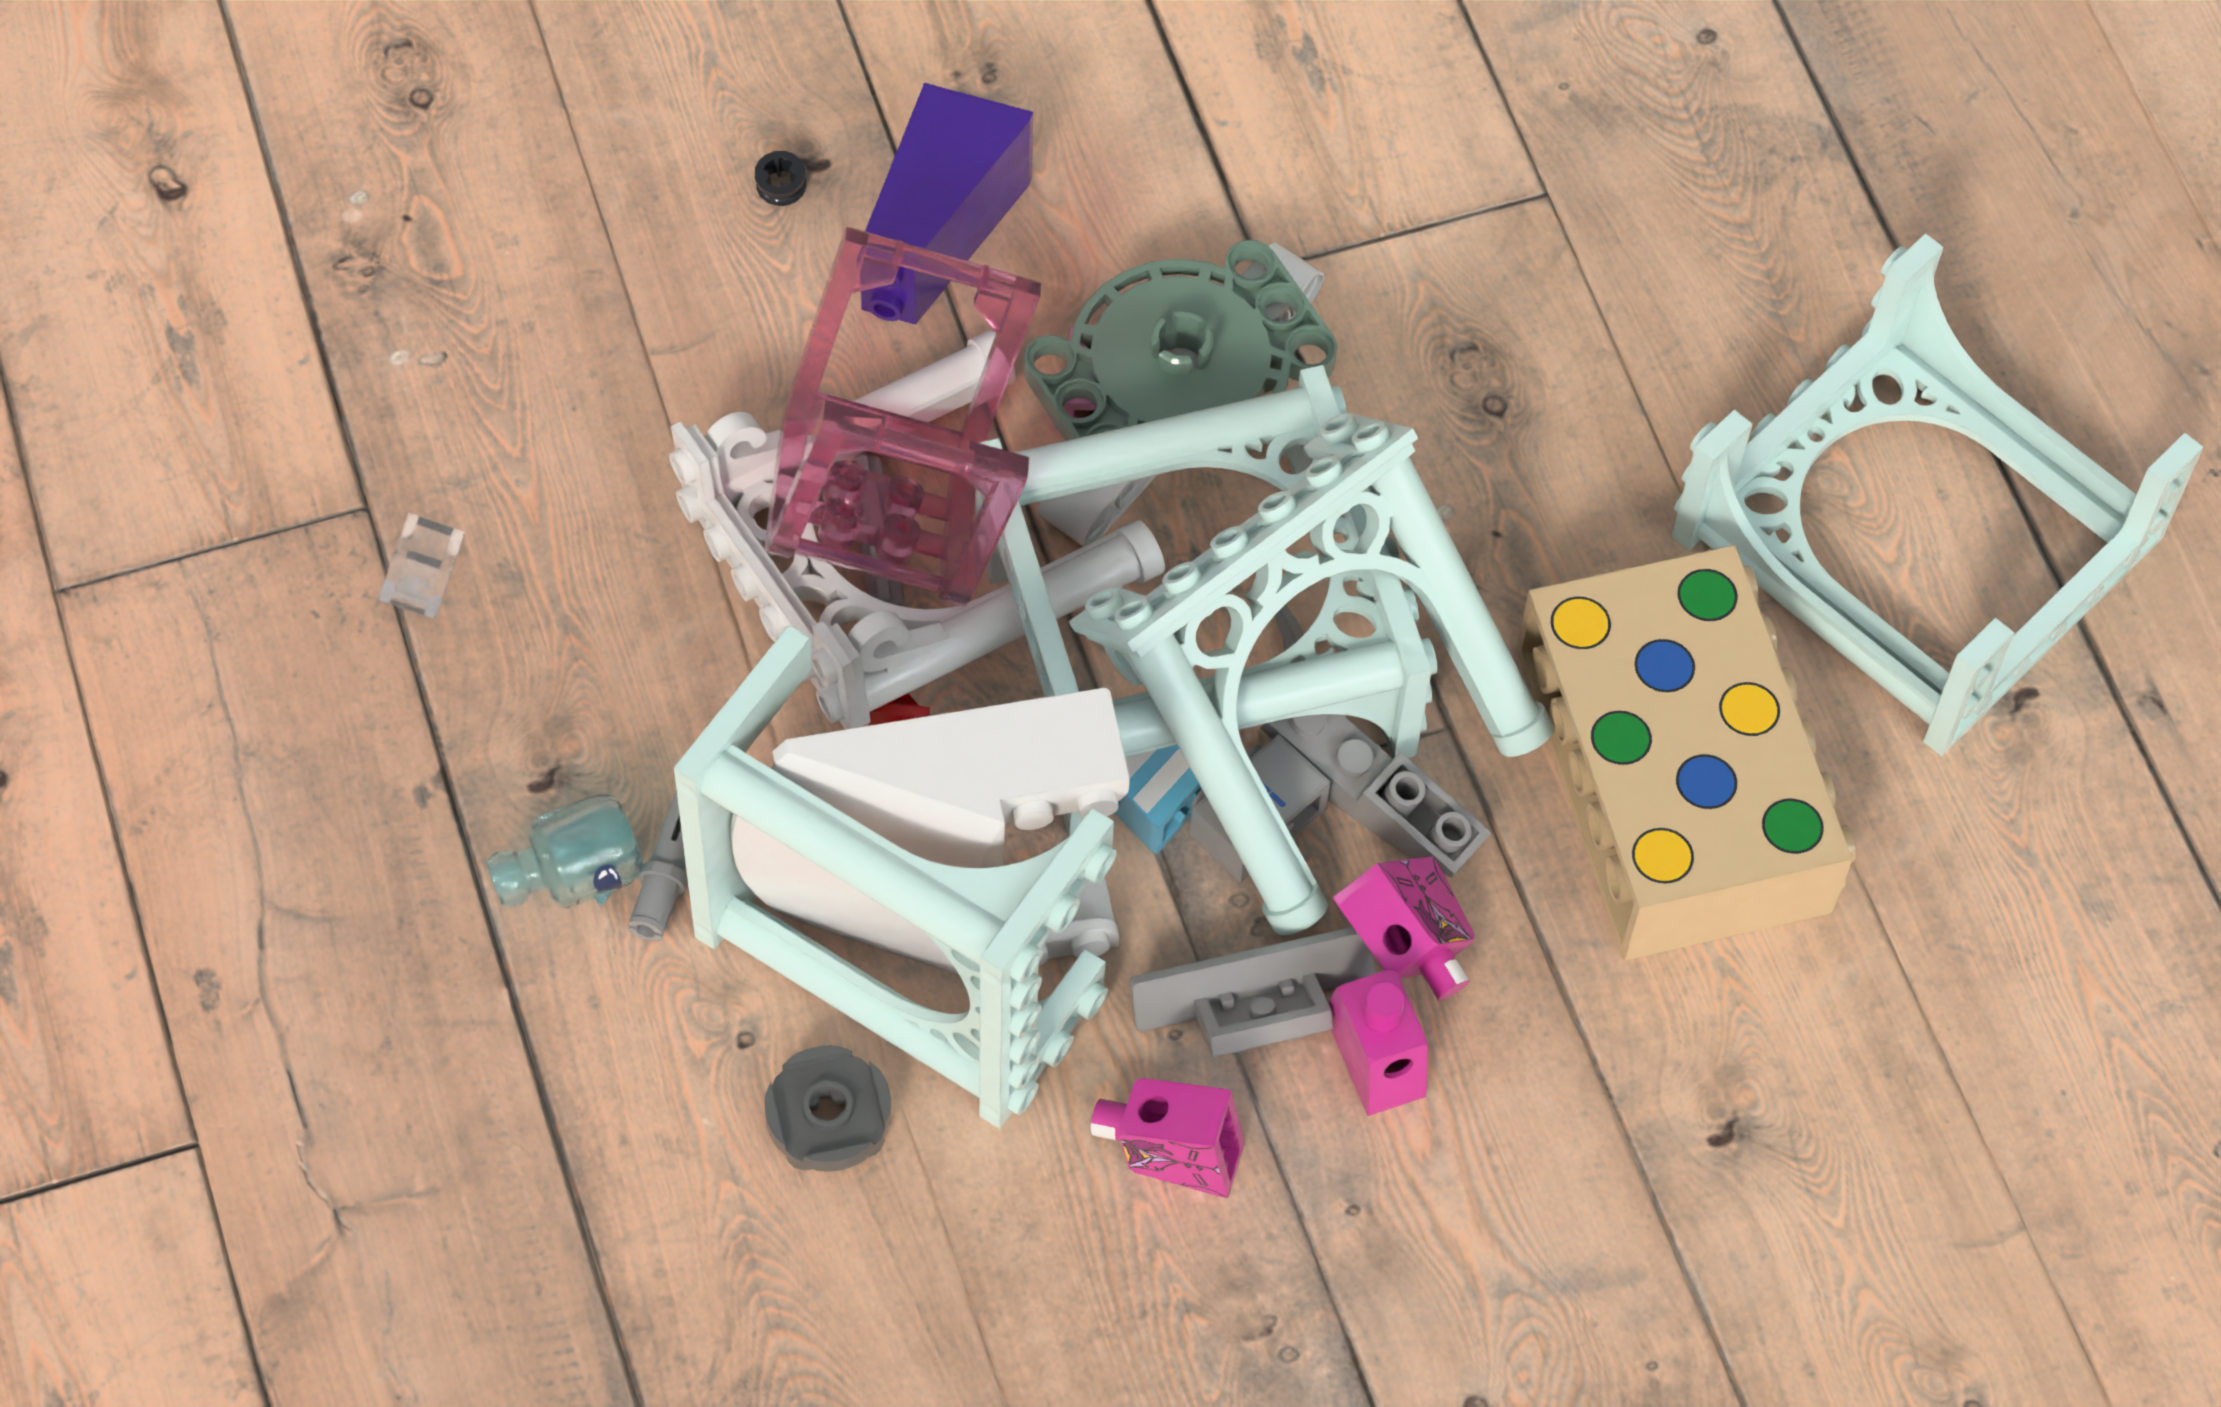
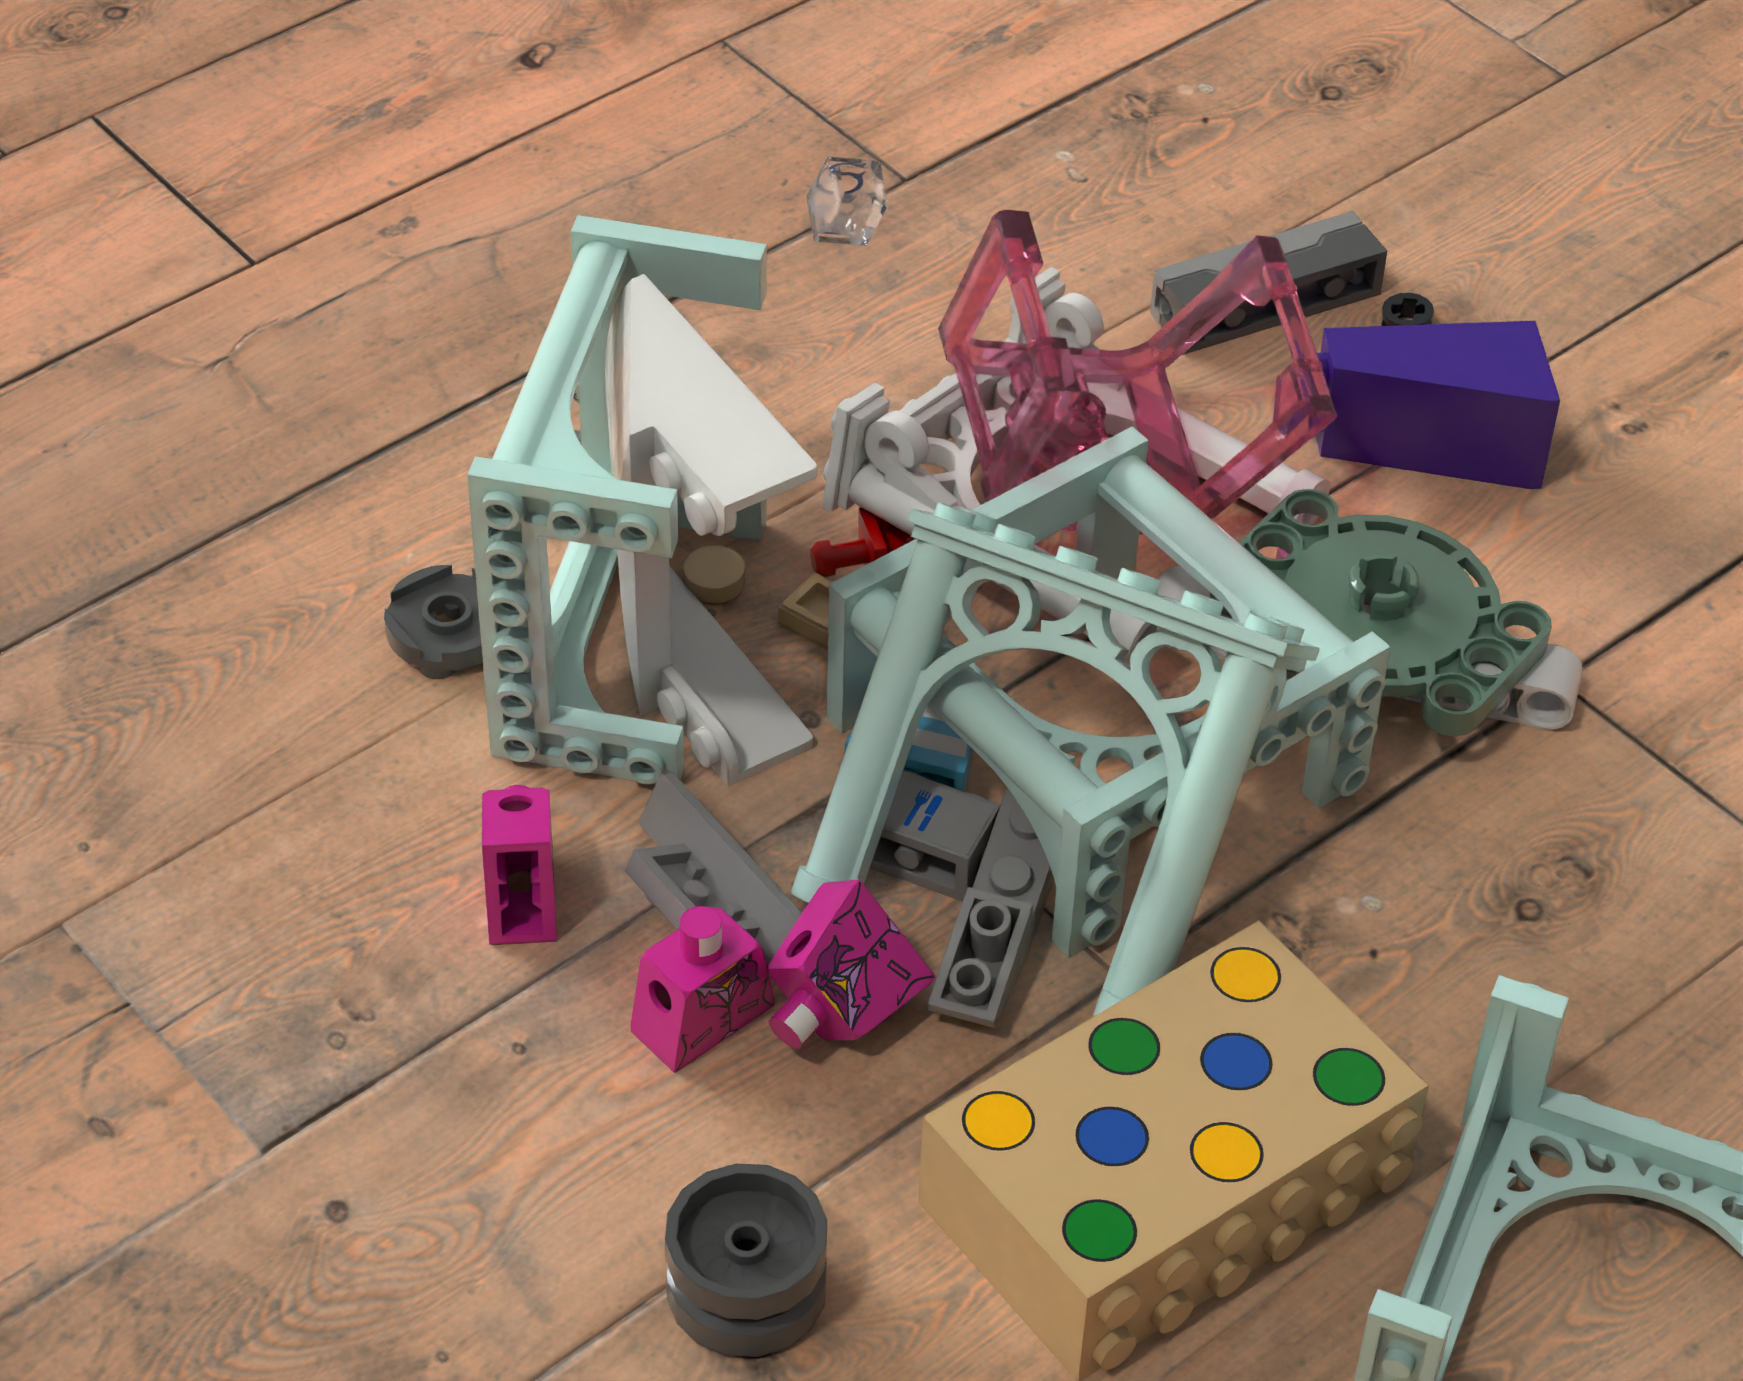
camera: 70 degrees right, 15 degrees down
(692, 266) = (1328, 261): none -> dark grey piece
(1675, 1097) = (746, 1259): none -> dark grey wheel

